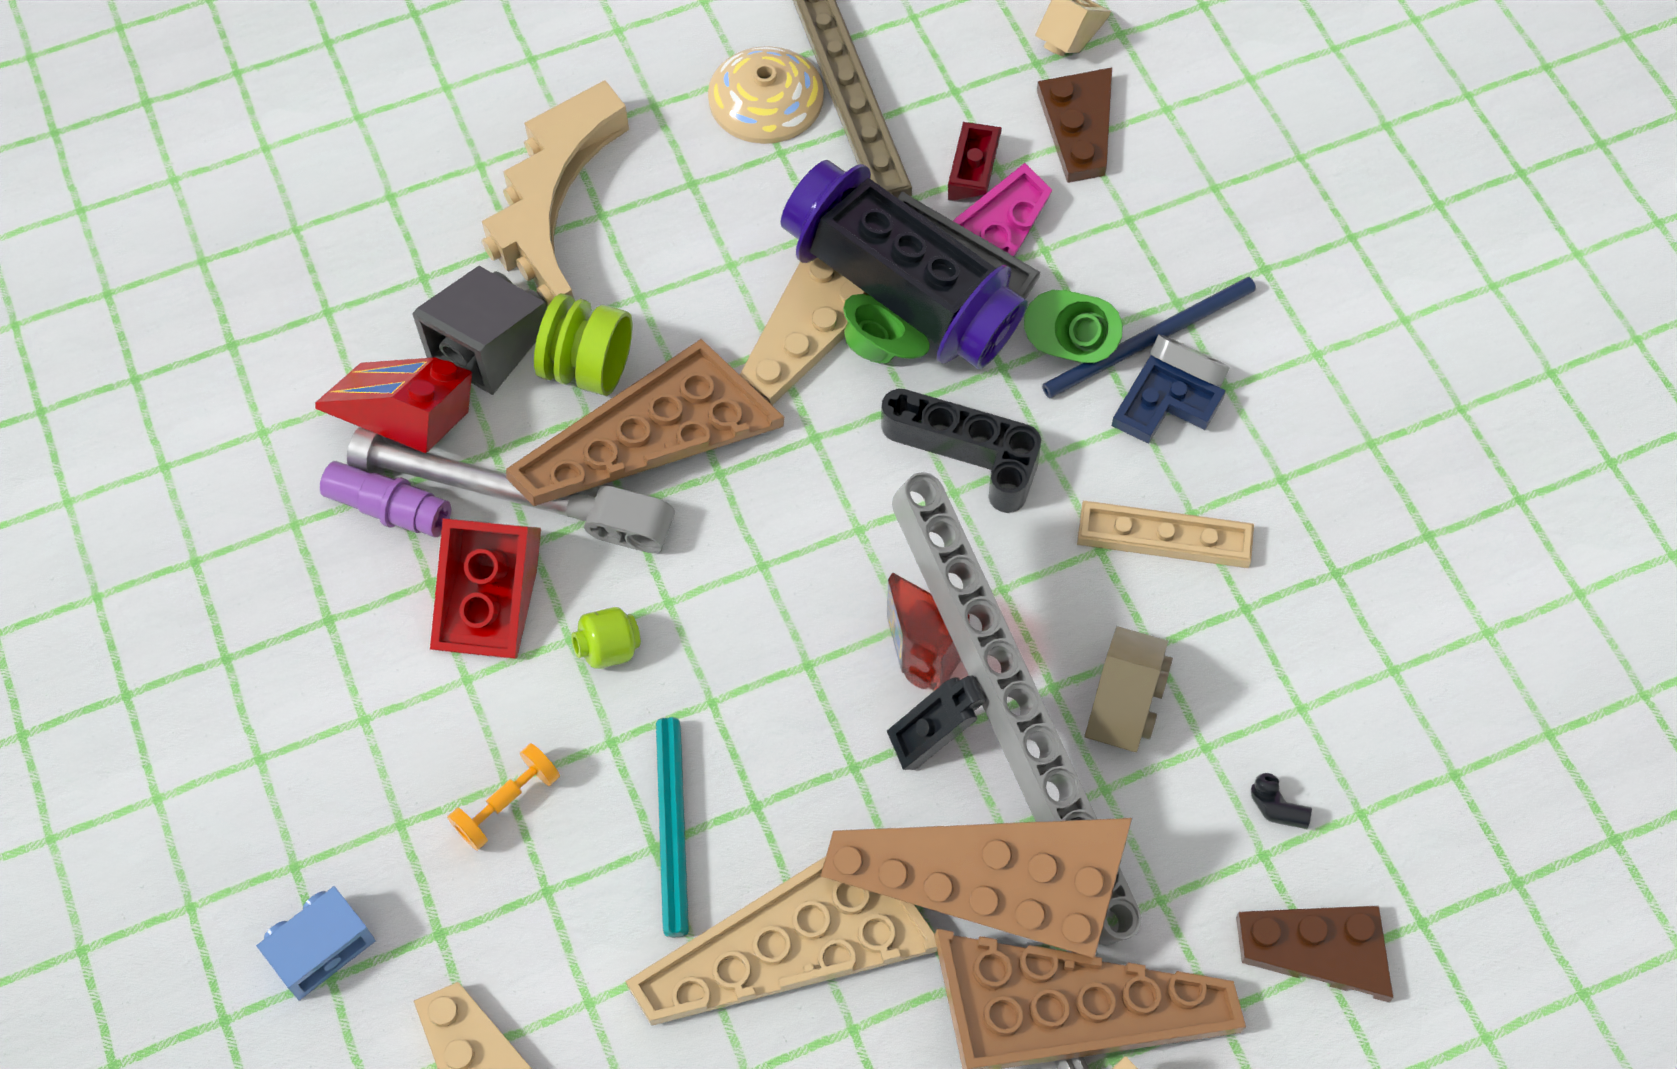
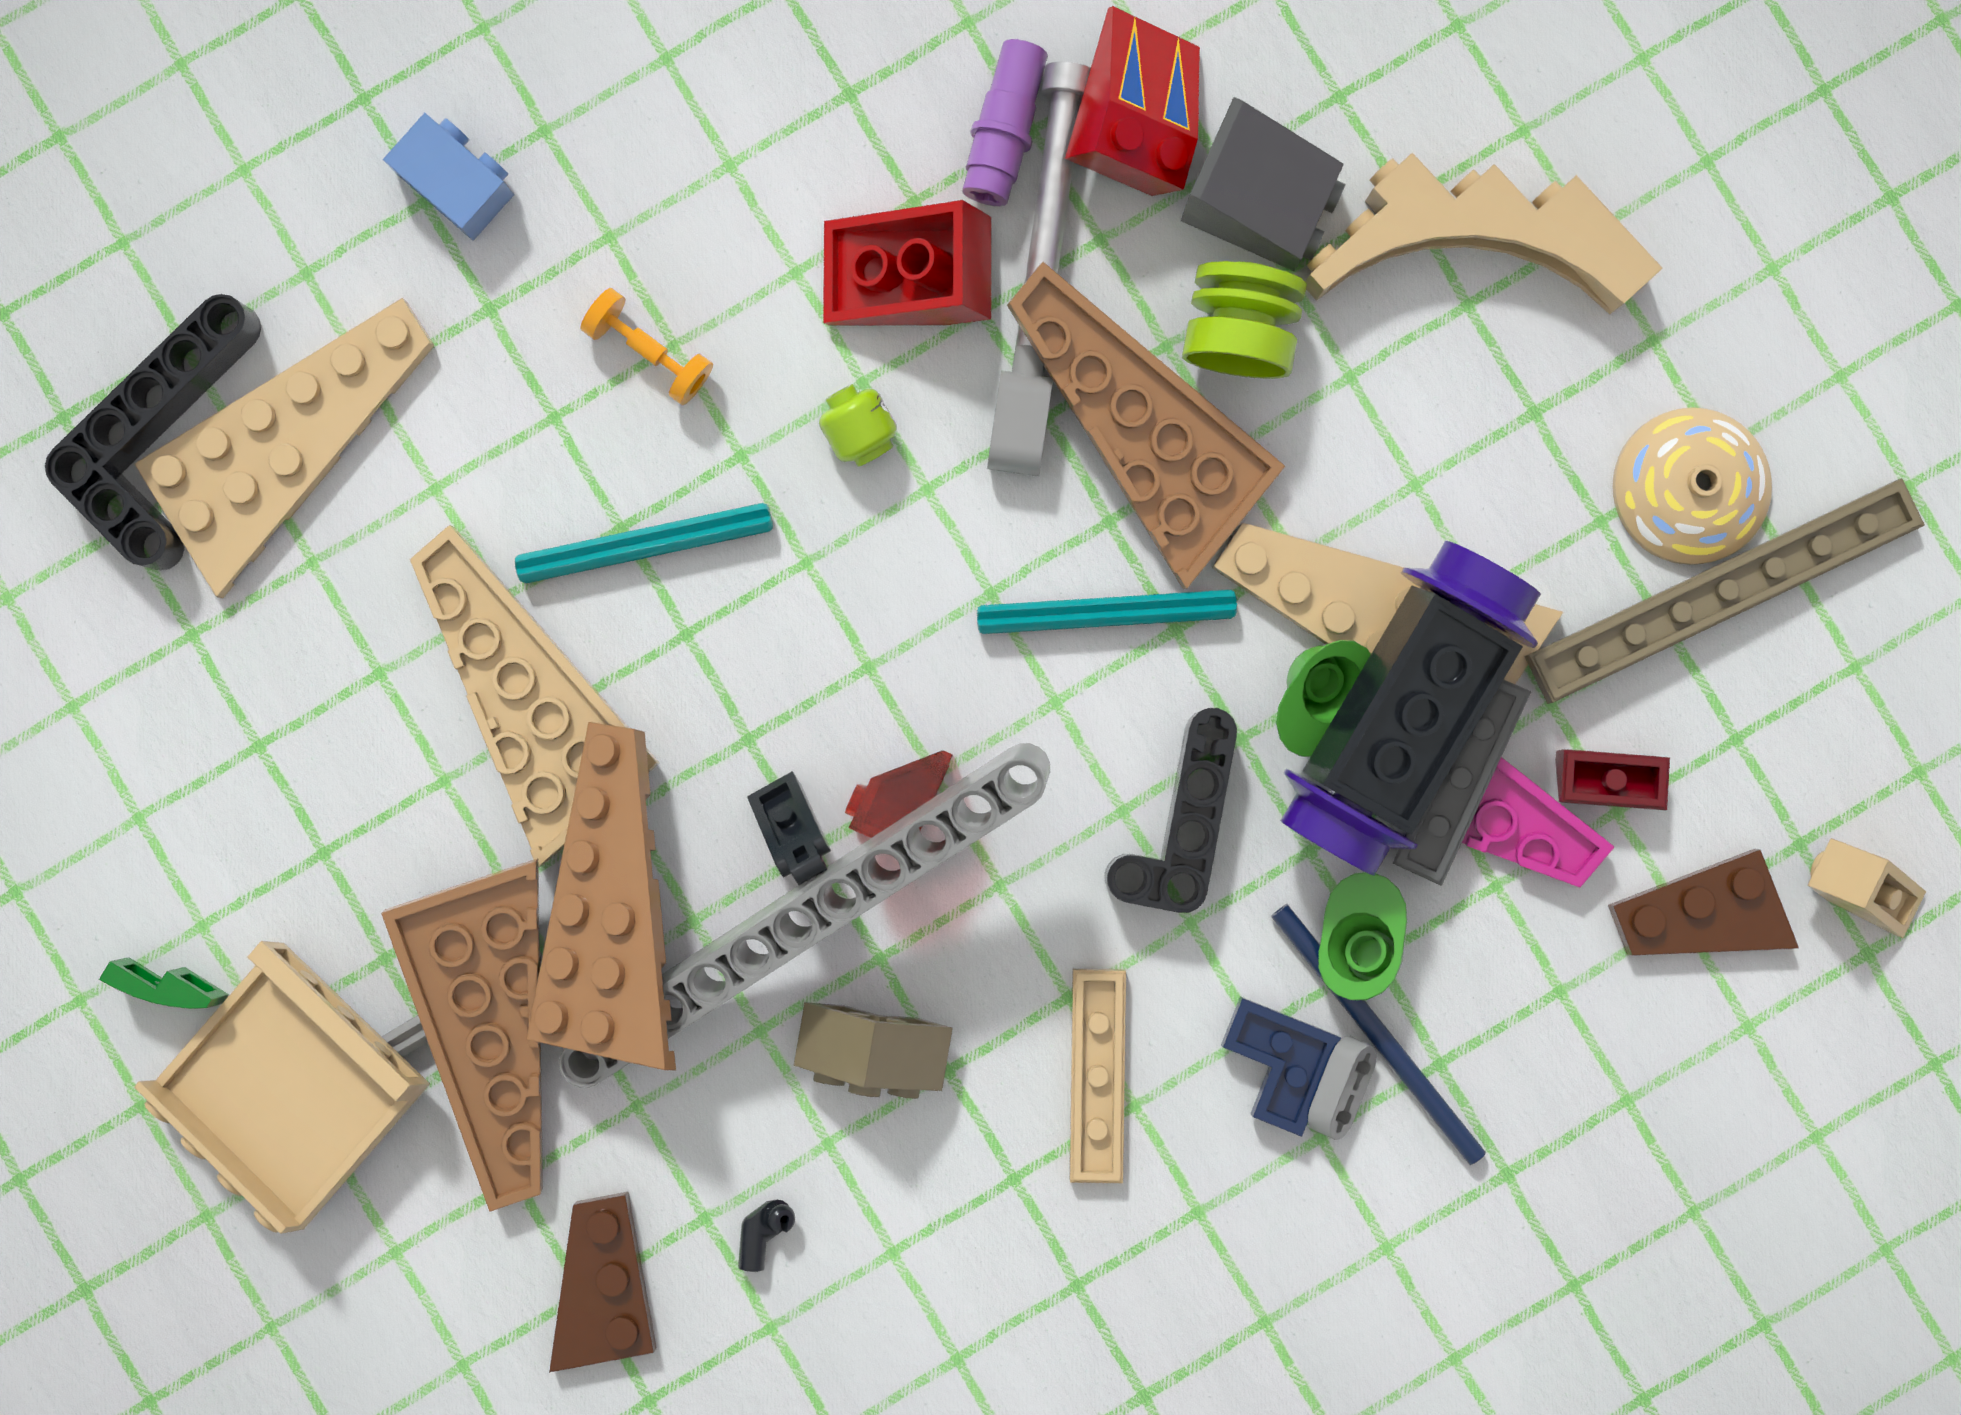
camera: 80 degrees right, 25 degrees up
(792, 482) = (1106, 611): none -> teal axle

